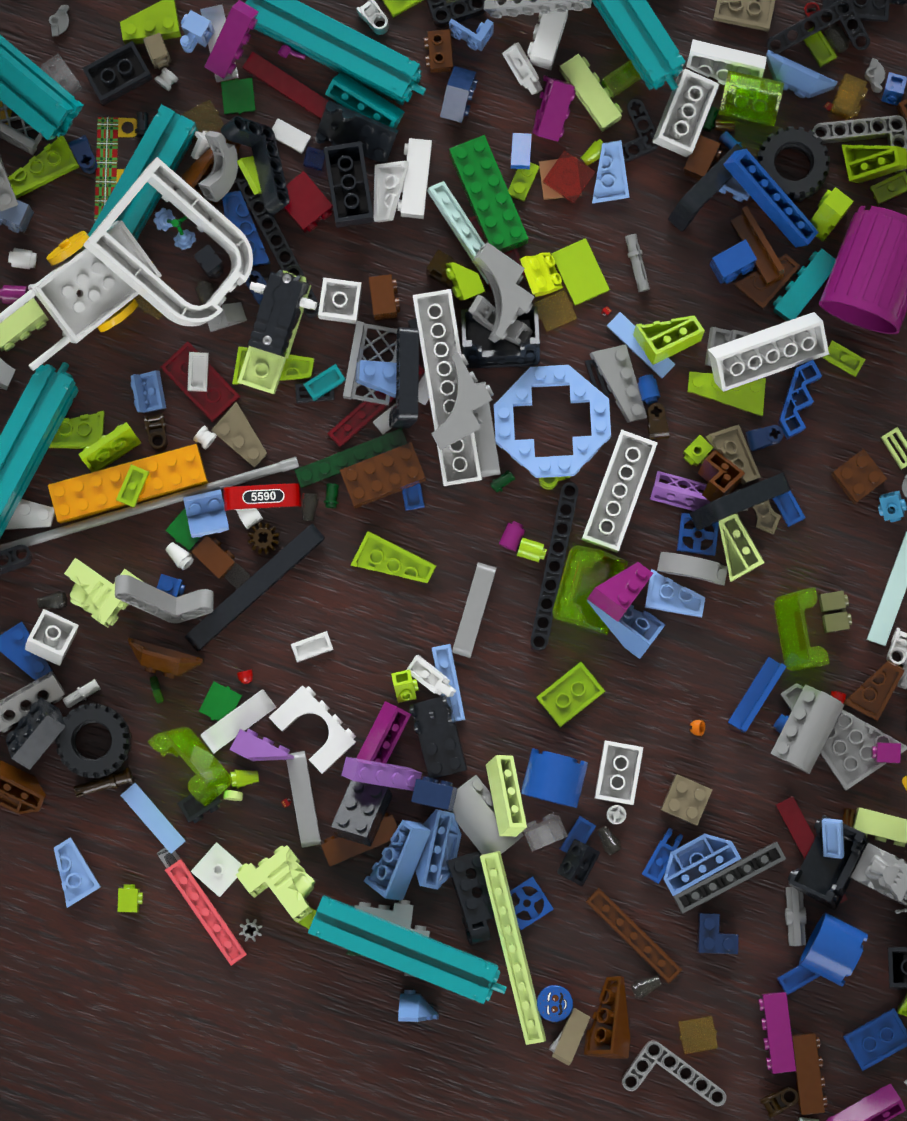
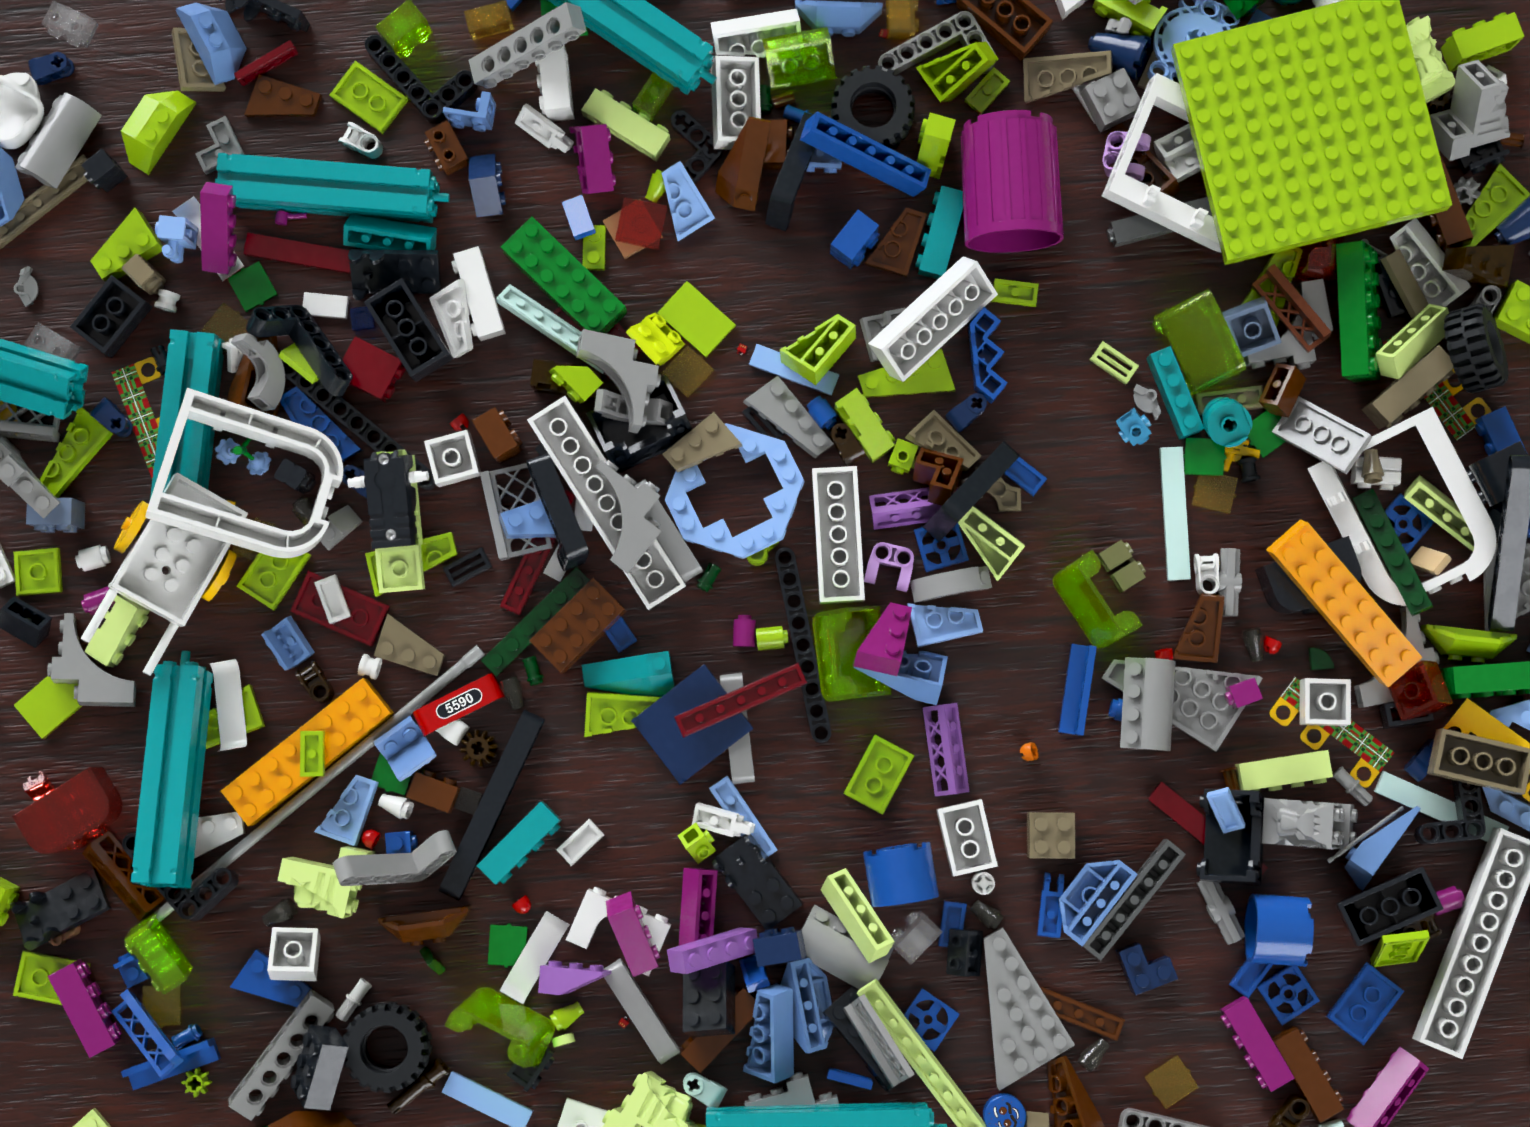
camera: 20 degrees left, 0 degrees up
(82, 419) = (229, 704): none -> white sticker
(109, 448) = (271, 722): lime plate -> none
(140, 546) = (350, 813): none -> light blue wing
(148, 572) = (370, 838): none -> red hinge
(156, 333) = (271, 577): none -> lime tile
(264, 626) = (519, 843): none -> teal brick
(323, 734) = (632, 934): none -> magenta wedge
(324, 382) = (473, 552): teal tile -> none
(329, 884) = (707, 1092): none -> light aqua piece
(357, 273) = (457, 422): none -> red hinge
(405, 808) = (754, 976): none -> blue tile
(410, 533) = (633, 675): none -> teal wedge
(440, 591) = (691, 753): none -> dark blue door
(445, 921) = (849, 1078): none -> blue tile
(481, 899) = (878, 1041): none -> light grey fence
(486, 587) = (740, 700): none -> dark red tile
(542, 372) = (702, 442): none -> dark tan wing
(601, 933) = (1022, 1019): none -> light grey wing
(635, 256) = (747, 276): light grey pin -> none
(636, 697) = (950, 749): none -> medium lavender fence
(651, 529) = (892, 561): none -> lavender piece
(668, 168) = (743, 168): none -> reddish brown wedge
(678, 413) = (865, 425): none -> lime wedge
(767, 260) = (891, 224): reddish brown fence -> none
(837, 1017) = (1311, 998): none -> blue piece
(859, 476) = (1085, 411): reddish brown brick -> none

